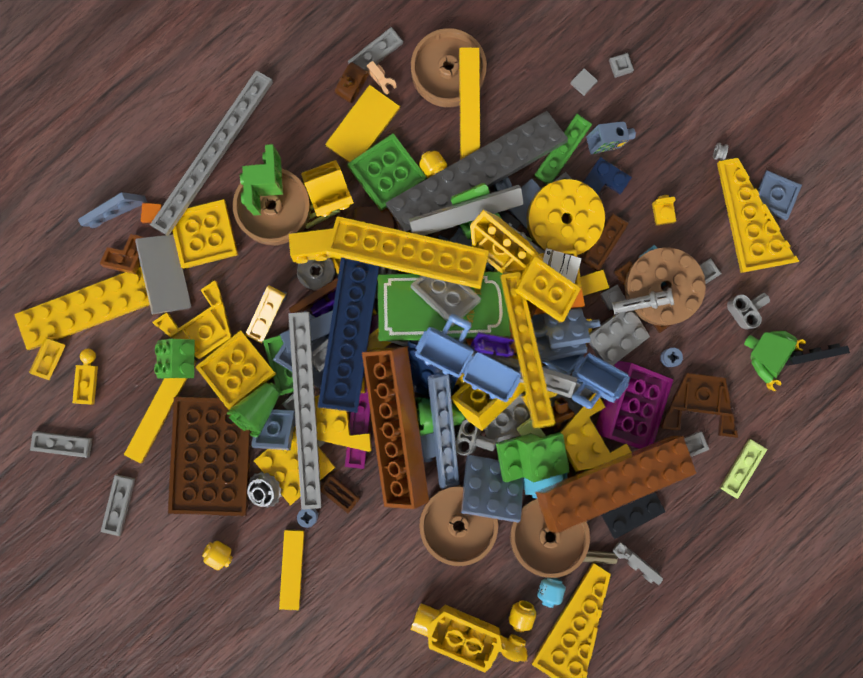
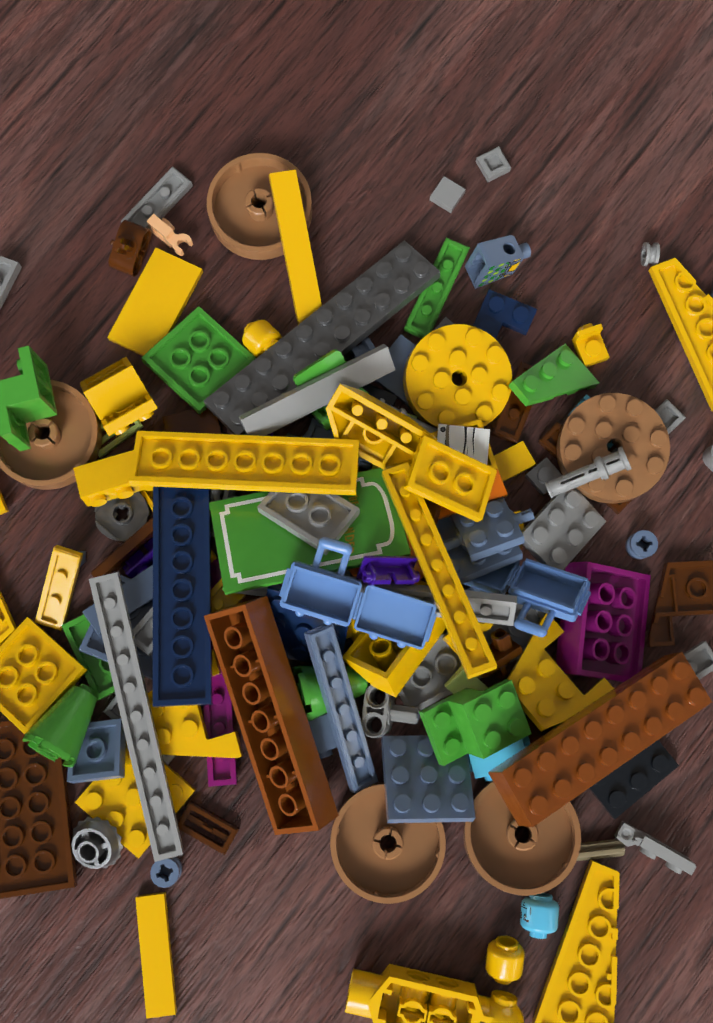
camera: 15 degrees left, 5 degrees down
(217, 555) = (42, 954): yellow head -> none
(633, 228) = (553, 376): none -> bright green wing

